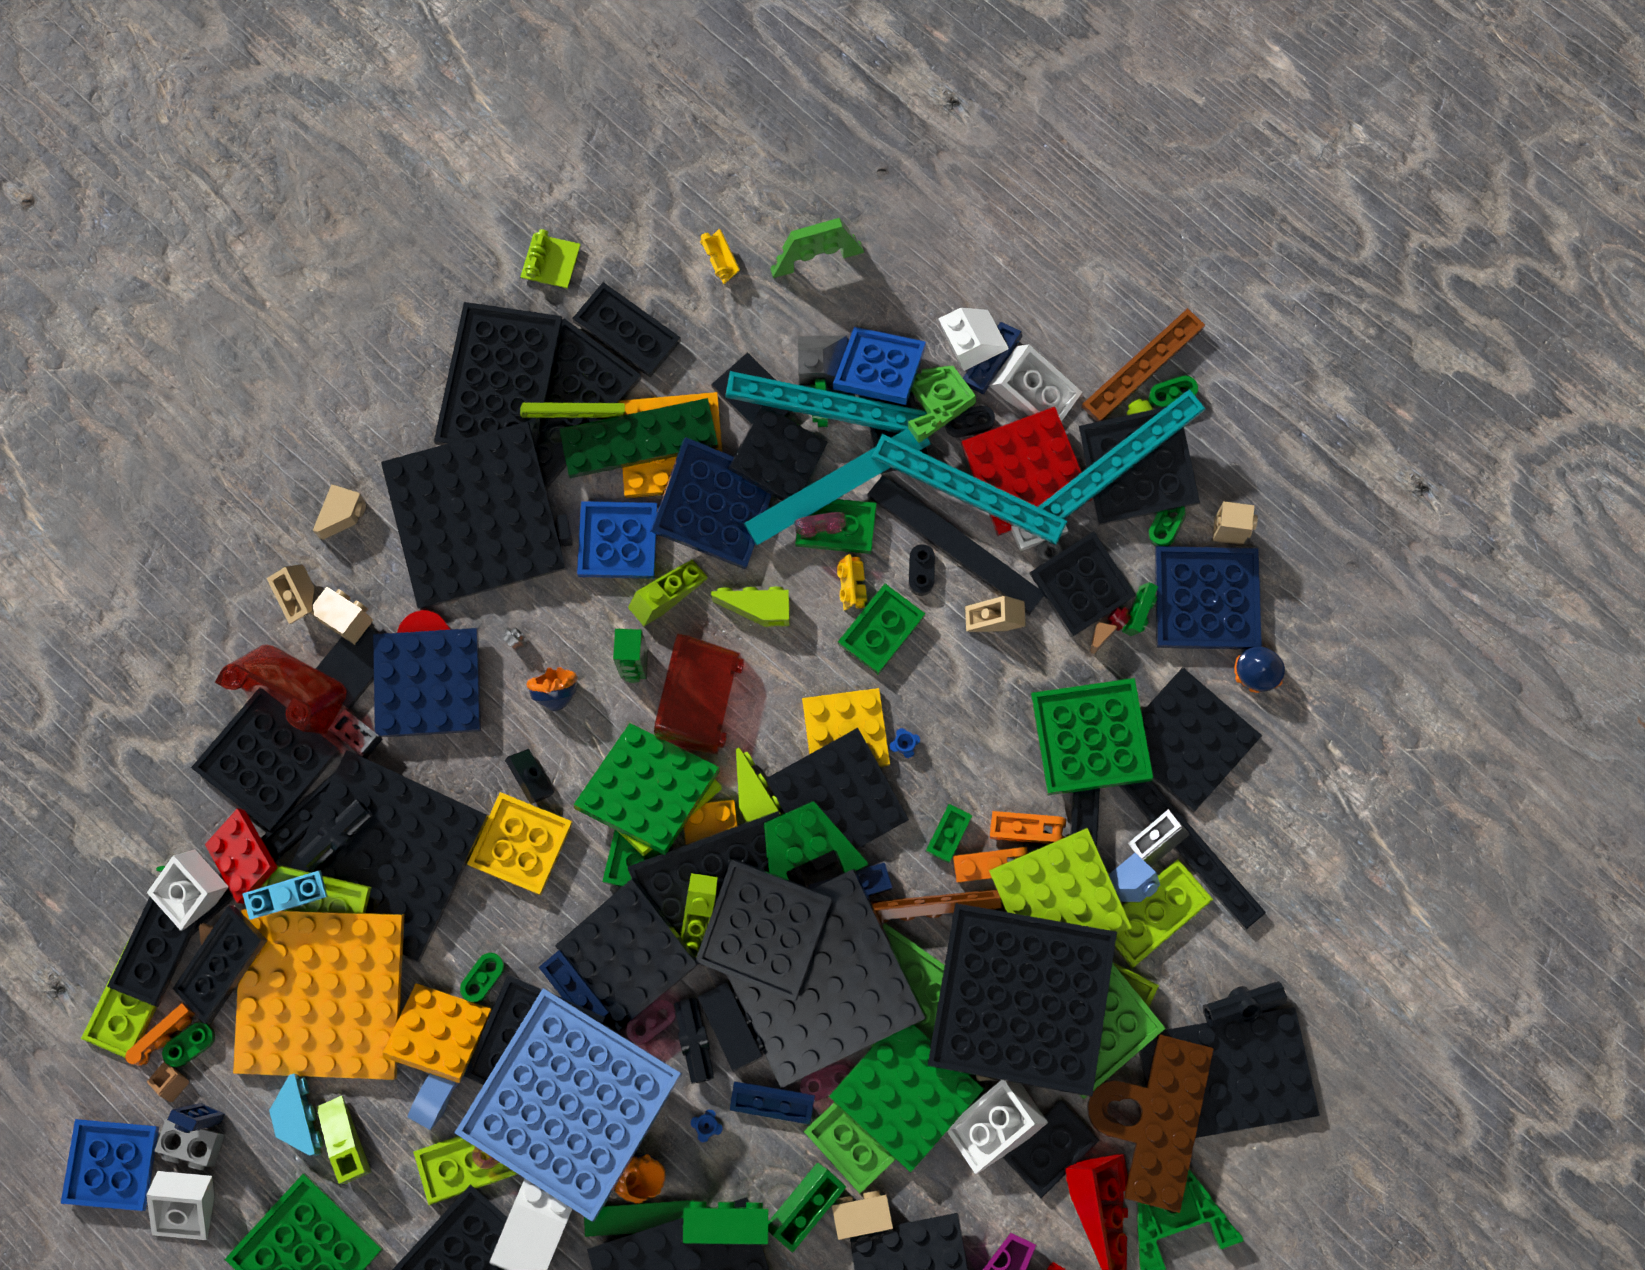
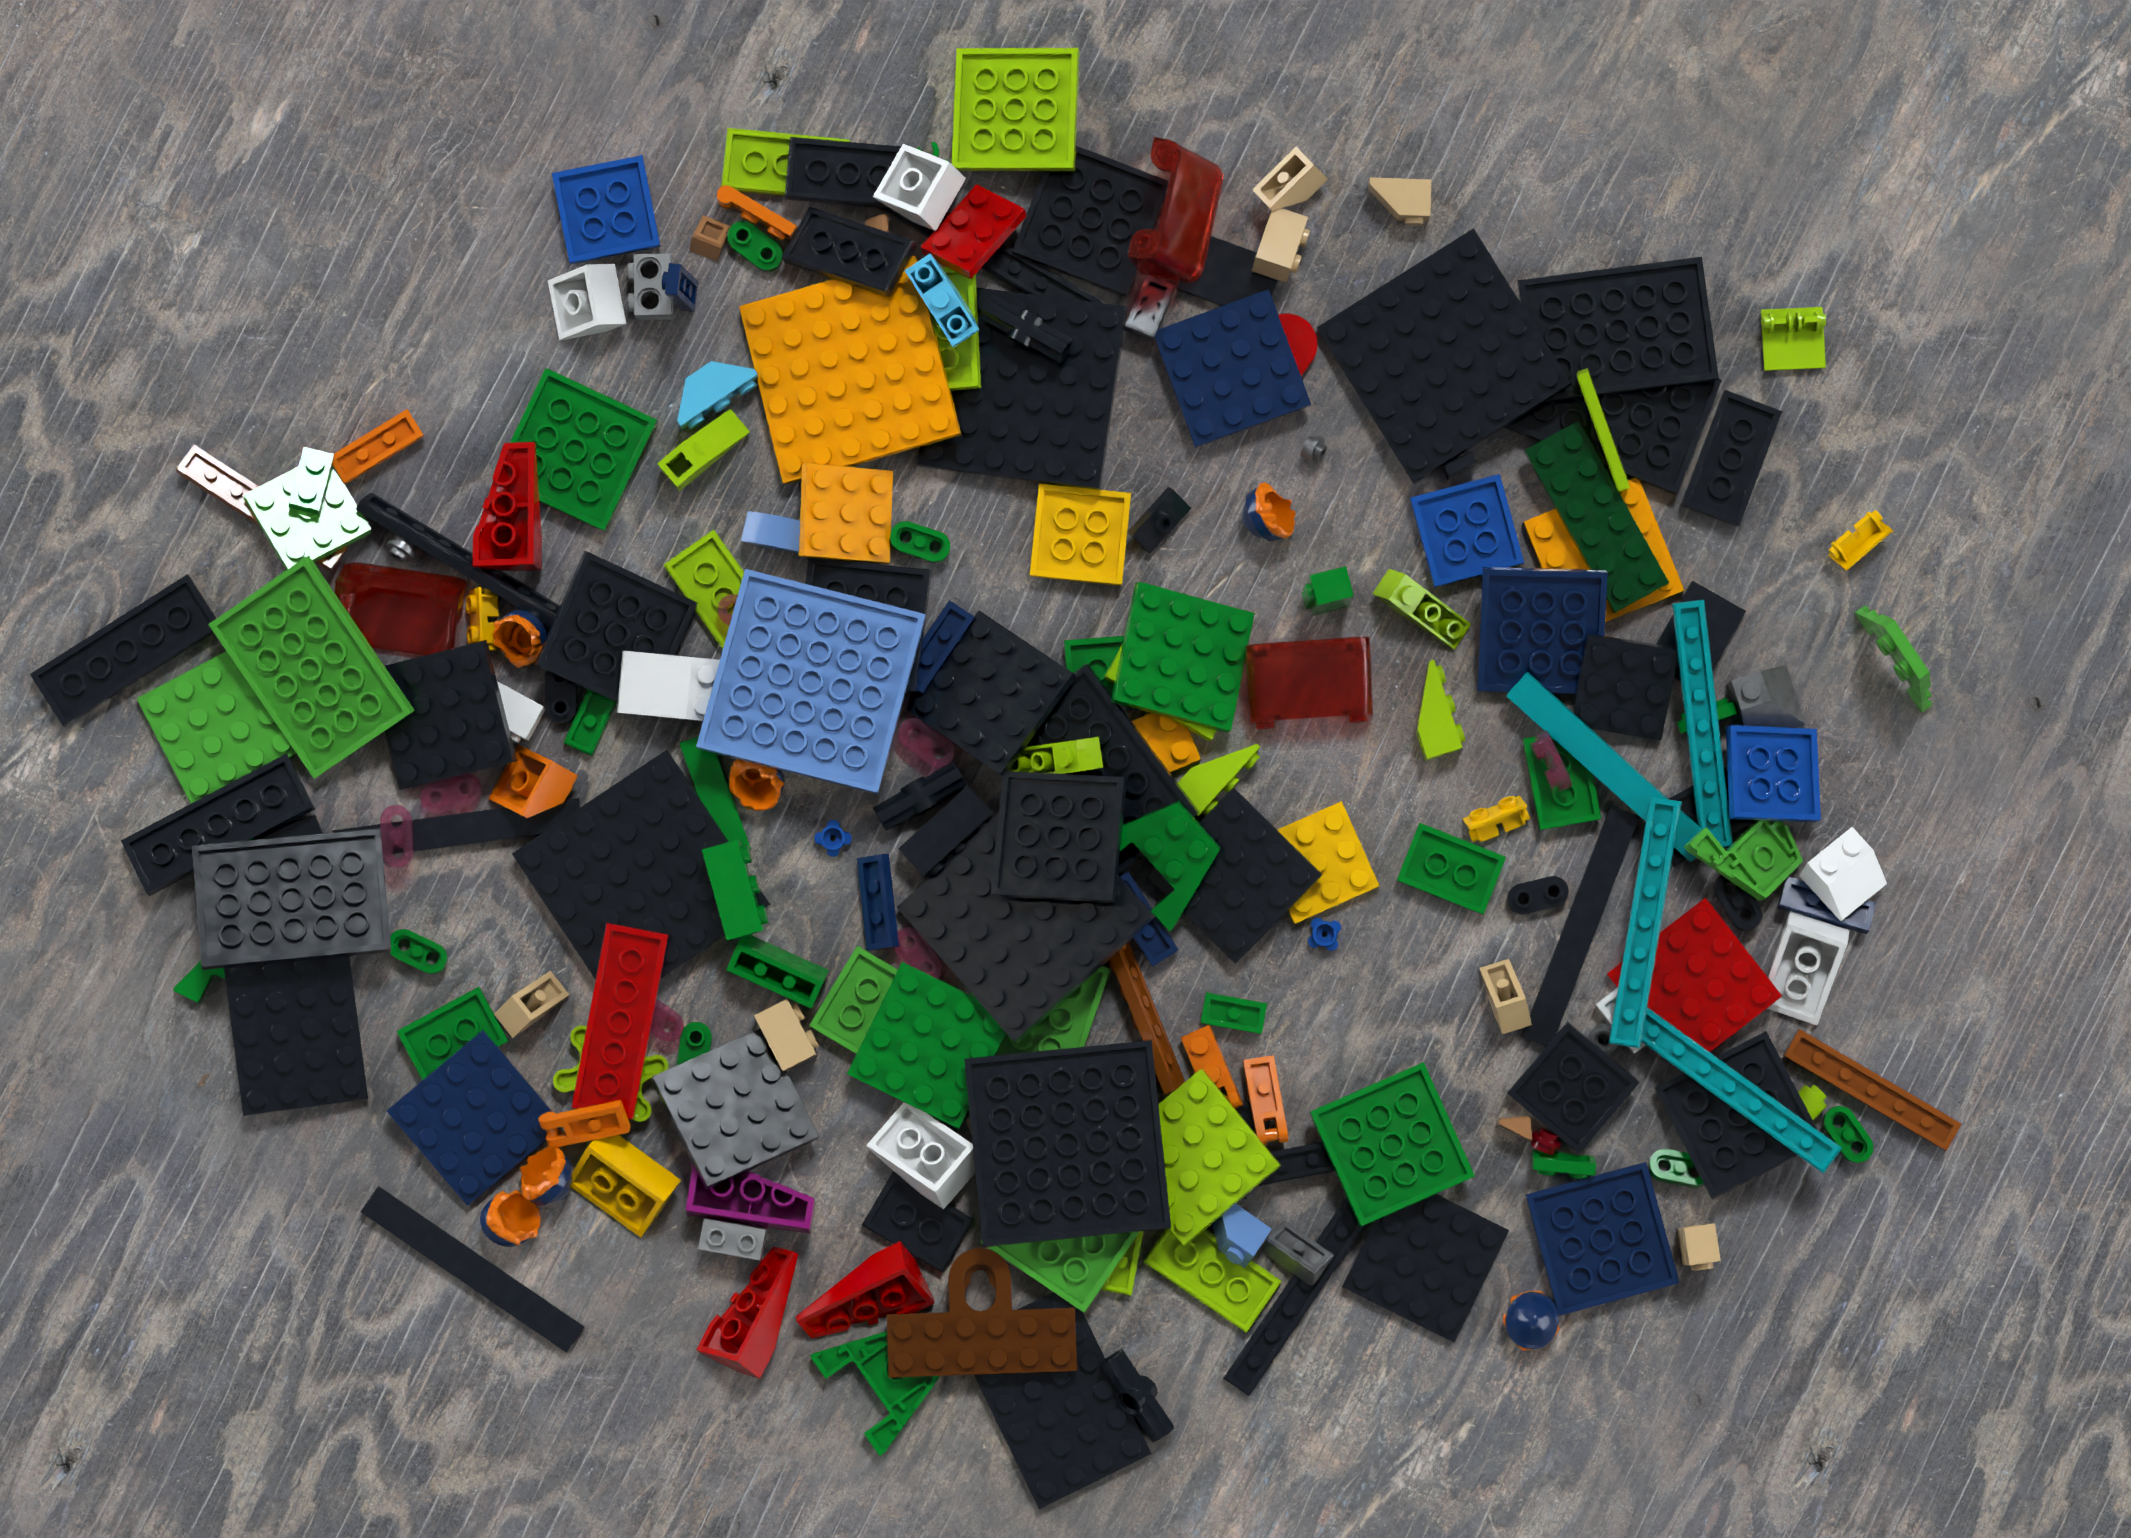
camera: 70 degrees right, 10 degrees up
(154, 793) = (1015, 109): none -> lime plate

